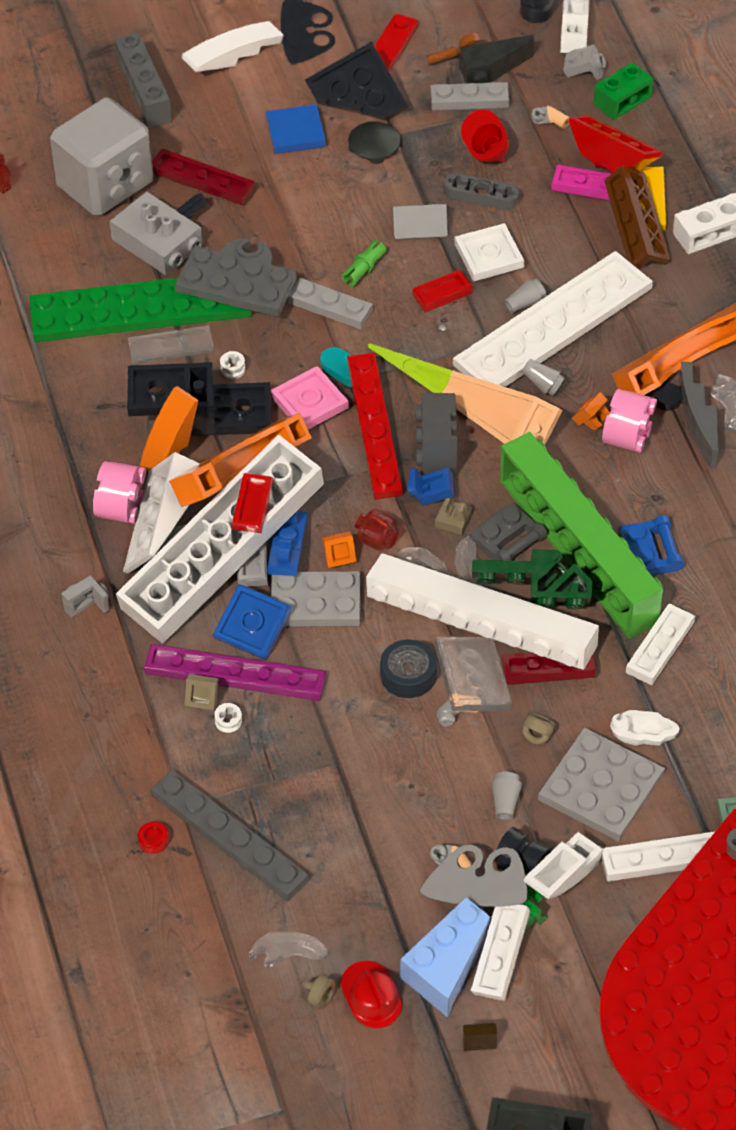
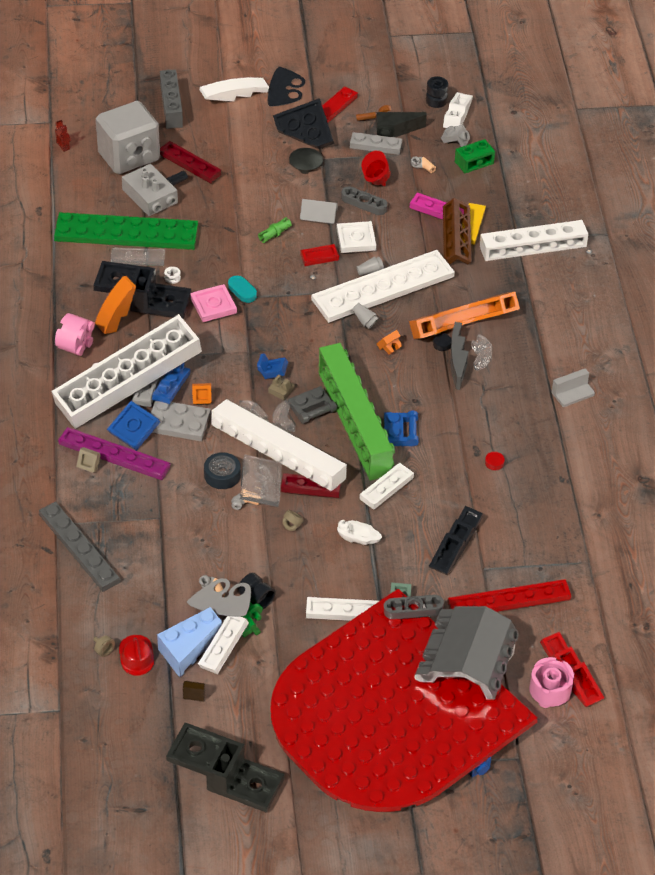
camera: 10 degrees right, 5 degrees down
(84, 594) = (34, 391): light grey bracket -> none
(153, 837) = (31, 538): red tile -> none
(157, 511) = (105, 338): white slope -> none
(223, 467) = (131, 331): orange arch -> none
(235, 722) = (97, 475): white bush -> none
(237, 277) = (191, 223): dark grey plate -> none
(252, 503) = (150, 351): red tile -> none
(286, 944) = (92, 615): clear piece -> none
(295, 129) = (258, 144): blue tile -> none
(330, 303) = (246, 250): light grey plate -> none
(374, 426) = (248, 326): red plate -> none
(377, 530) = (229, 386): clear red head -> none
(437, 432) = (286, 336): dark grey wedge -> none
(493, 407) = (321, 323): light nougat plate -> none
(506, 791) = (259, 553): light grey cone -> none
(564, 866) = (279, 602): white slope -> none
(571, 588) = (323, 431): dark green piece -> none
(601, 784) = (322, 561): light grey plate -> none
(609, 146) = (452, 185): red wedge -> none
(629, 420) = (409, 350): bright pink brick -> none

